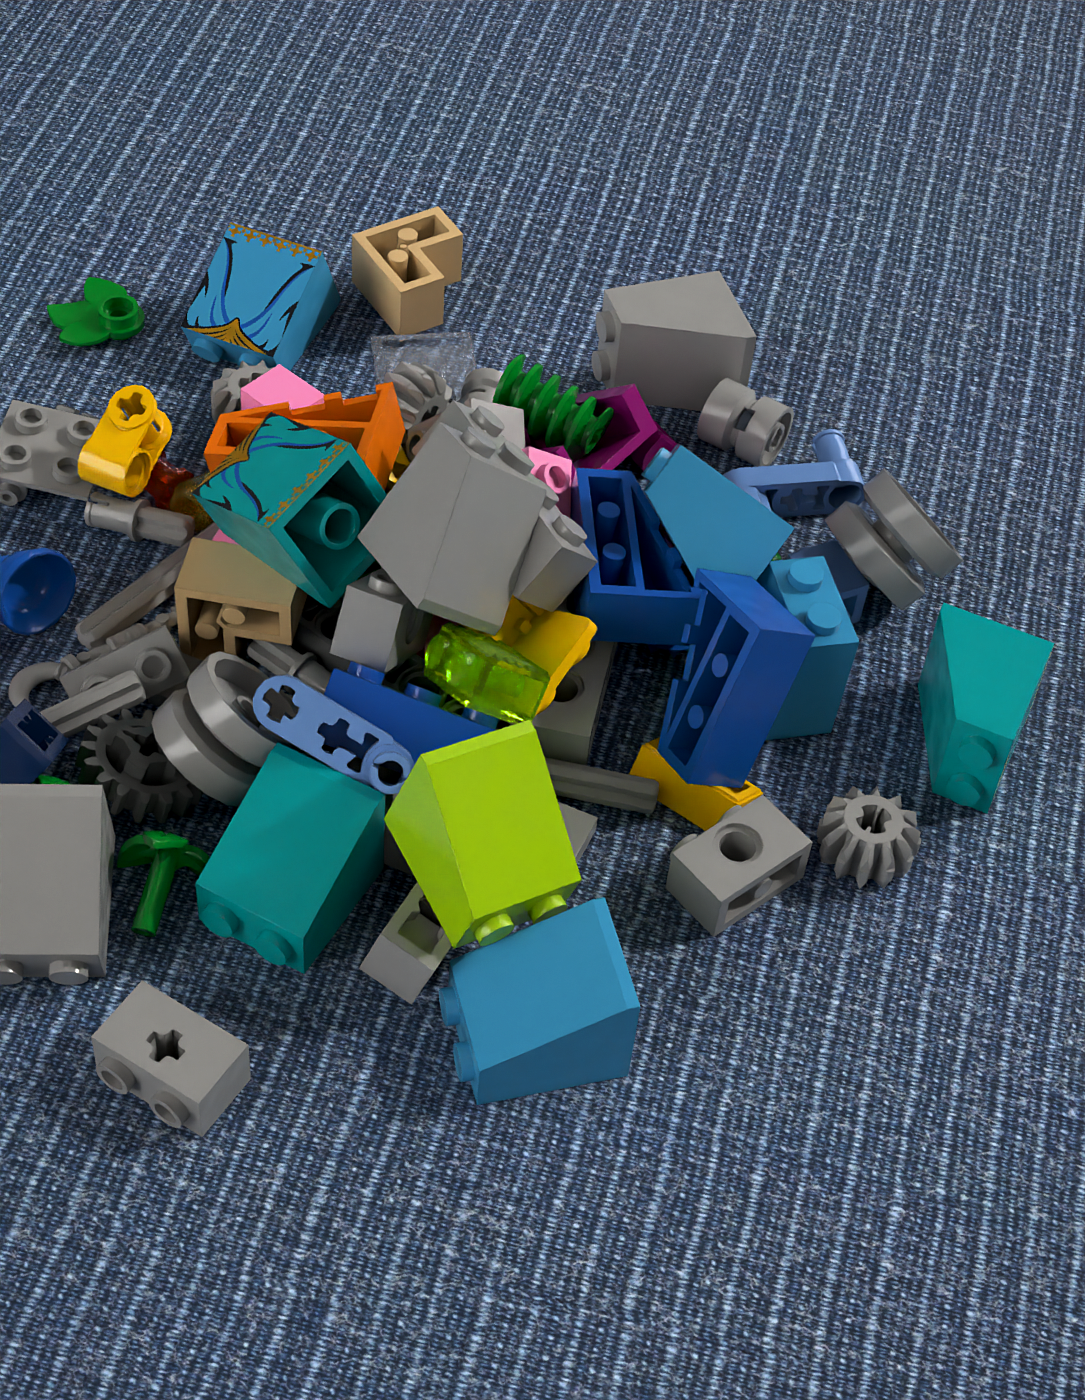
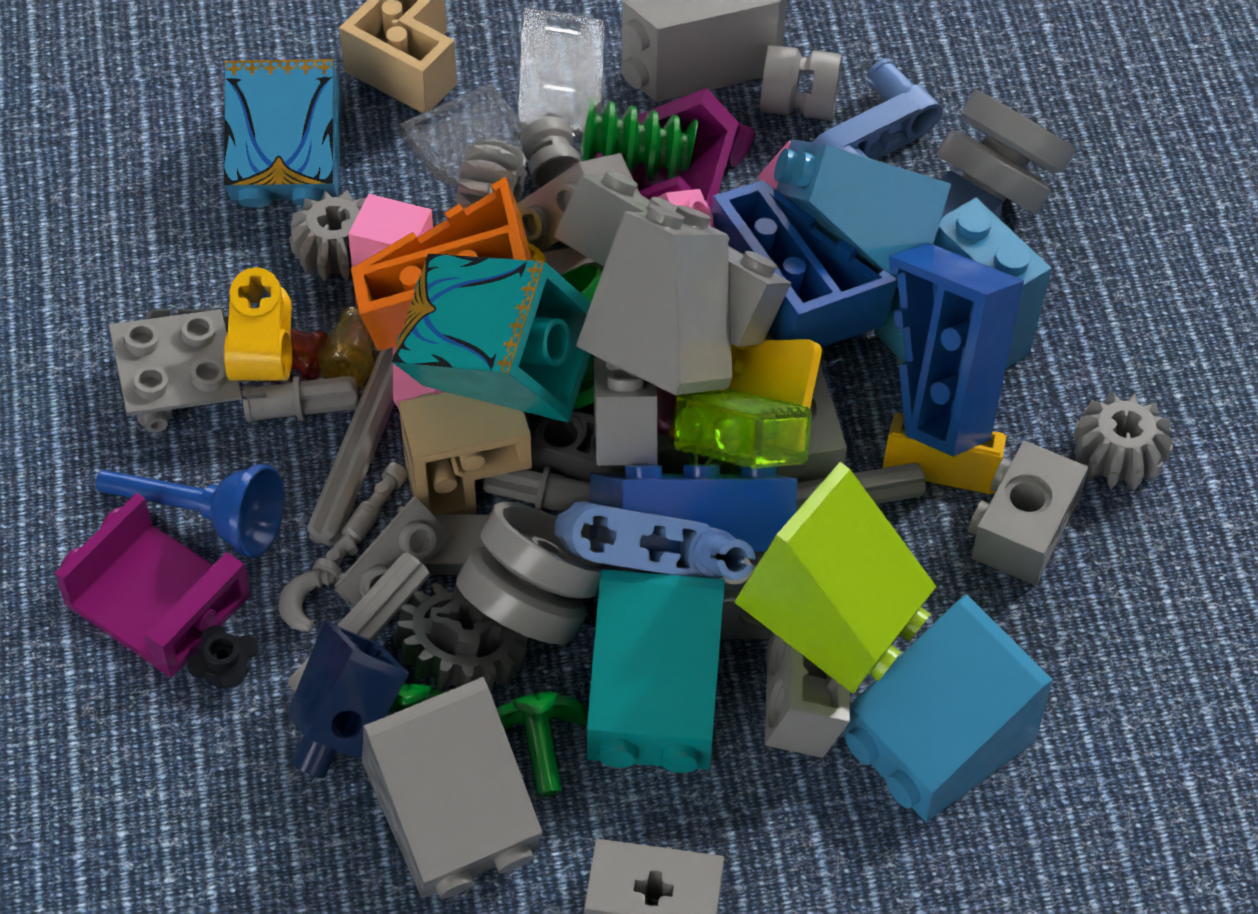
camera: 20 degrees left, 5 degrees up
(101, 316) = (121, 201): green plate -> none
(545, 329) = (560, 67): none -> clear piece
(976, 702) = (1153, 280): teal slope -> none

